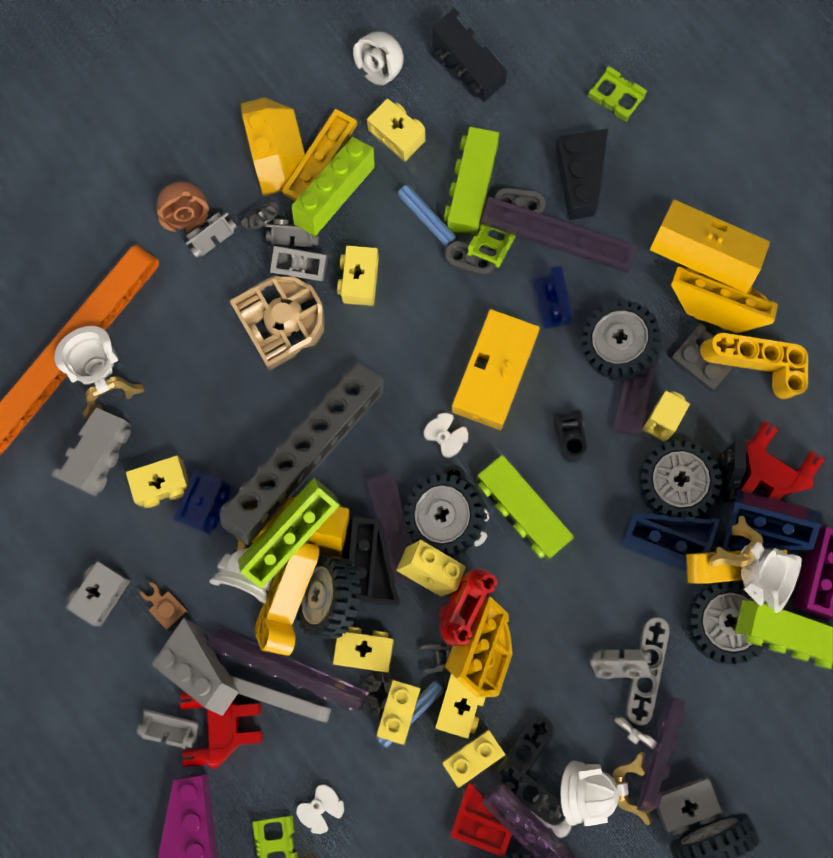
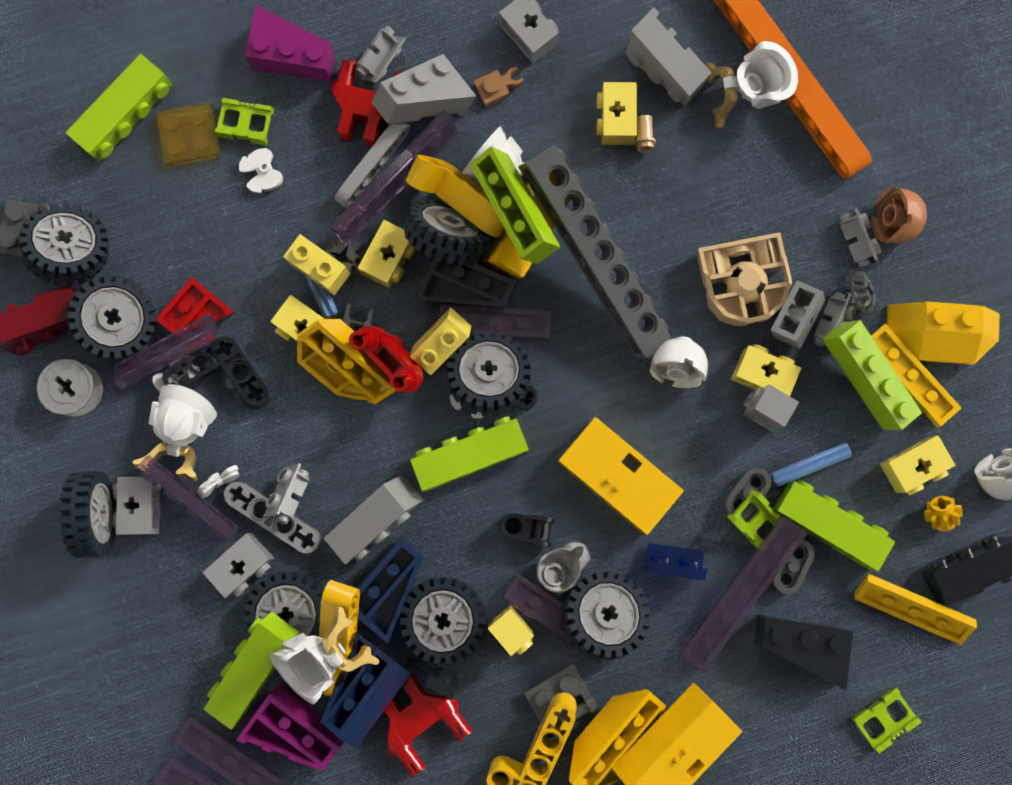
camera: 105 degrees right, 5 degrees up
(177, 448) = (645, 140): none -> tan pin
(202, 502) = (584, 147): clear blue bracket -> none
(375, 348) = (680, 361): none -> white cylinder
(391, 261) = (769, 407): none -> light grey brick
(430, 97) = (943, 513): none -> yellow gear
(450, 443) = (560, 406): white piece -> none
(473, 758) = (252, 322): light yellow brick -> none
(518, 97) = (915, 609): none -> yellow plate
(594, 392) = (562, 567): none -> light grey hair
(616, 572) = (374, 519): none -> light grey wedge
(687, 682) = (223, 571): none -> light grey brick

